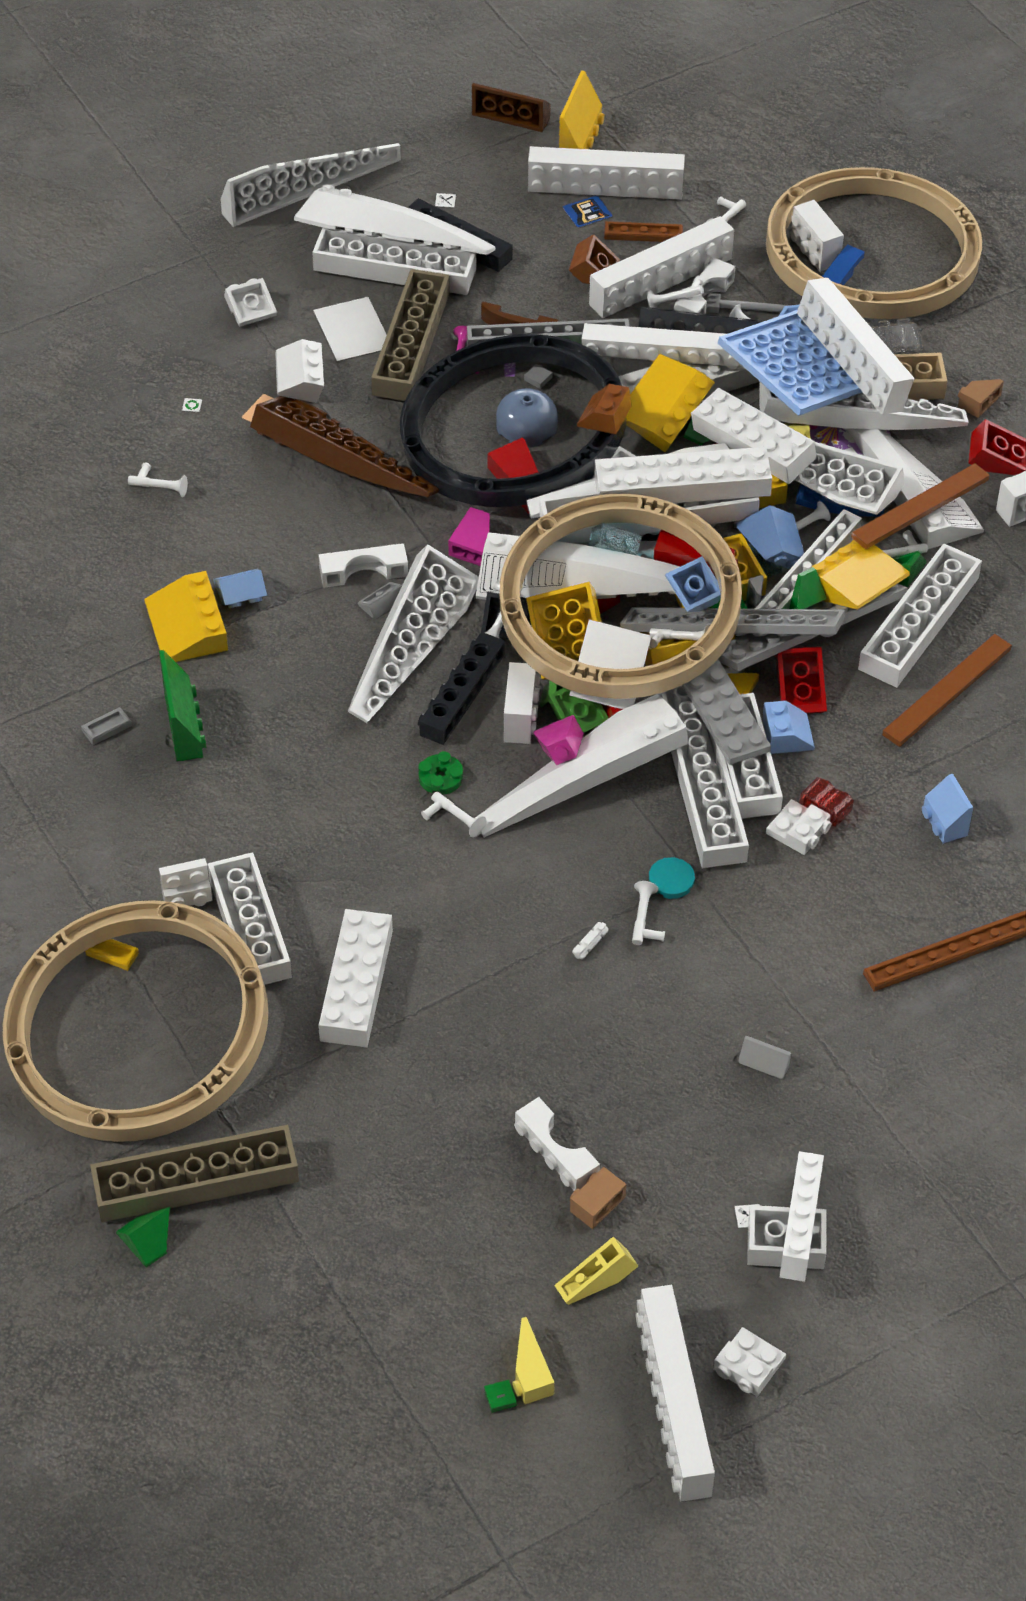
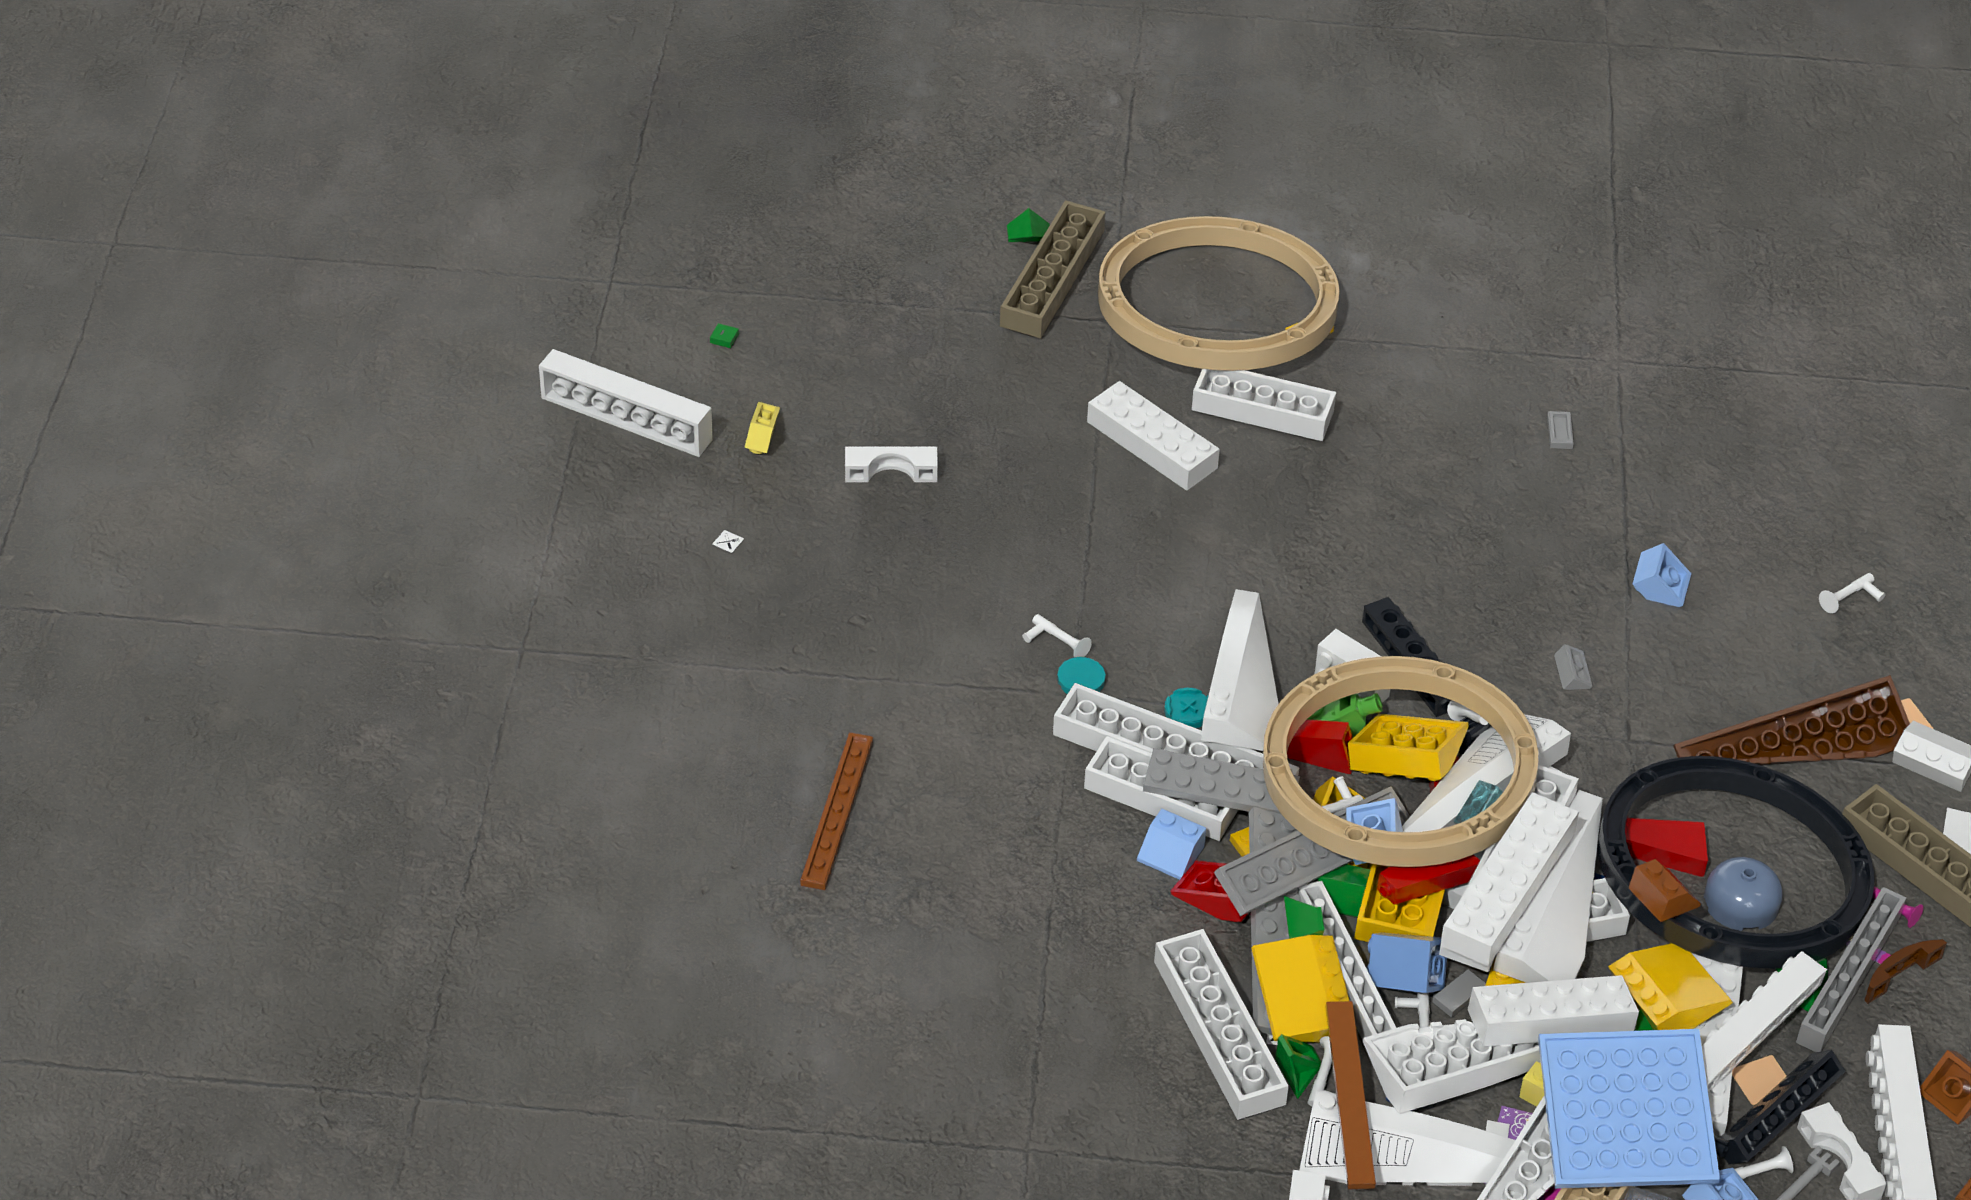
camera: 125 degrees right, 5 degrees down
(182, 710) = (1529, 453): green slope -> none
(186, 883) = (1330, 373): white plate -> none
(187, 618) = (1638, 527): yellow slope -> none
(192, 405) = (1953, 672): white sticker -> none
(387, 560) = (1615, 688): white arch -> none
(426, 608) = (1511, 657): white wedge -> none
(440, 763) = (1315, 596): green plate -> none
(441, 801) = (1291, 581): white piece -> none
(470, 536) = (1597, 762): dark pink slope -> none
(532, 1376) = (727, 355): light yellow slope -> none
(560, 739) = (1278, 659): dark pink slope -> none
(590, 940) = (1063, 591): white axle -> none
(597, 1197) = (824, 460): medium nougat brick -> none
(614, 649) = (1339, 734): white sticker -> none
(638, 797) = (1186, 706): none -> teal tile
(695, 289) = (1857, 1100): white piece -> none
(748, 1362) = (613, 465): white plate -> none
(754, 592) = (1344, 901): light grey slope -> none
(764, 1057) = (850, 626): light grey slope -> none
(767, 1236) = (681, 533): white brick -> none
(799, 826) = (1057, 789): white plate -> none
(801, 1216) = (711, 565): white arch -> none
(827, 798) = (1064, 819): clear red brick -> none
(855, 346) = (1605, 1142): white brick -> none
(946, 690) = (1118, 999): dark orange tile -> none
(948, 810) = (972, 890): light blue slope -> none

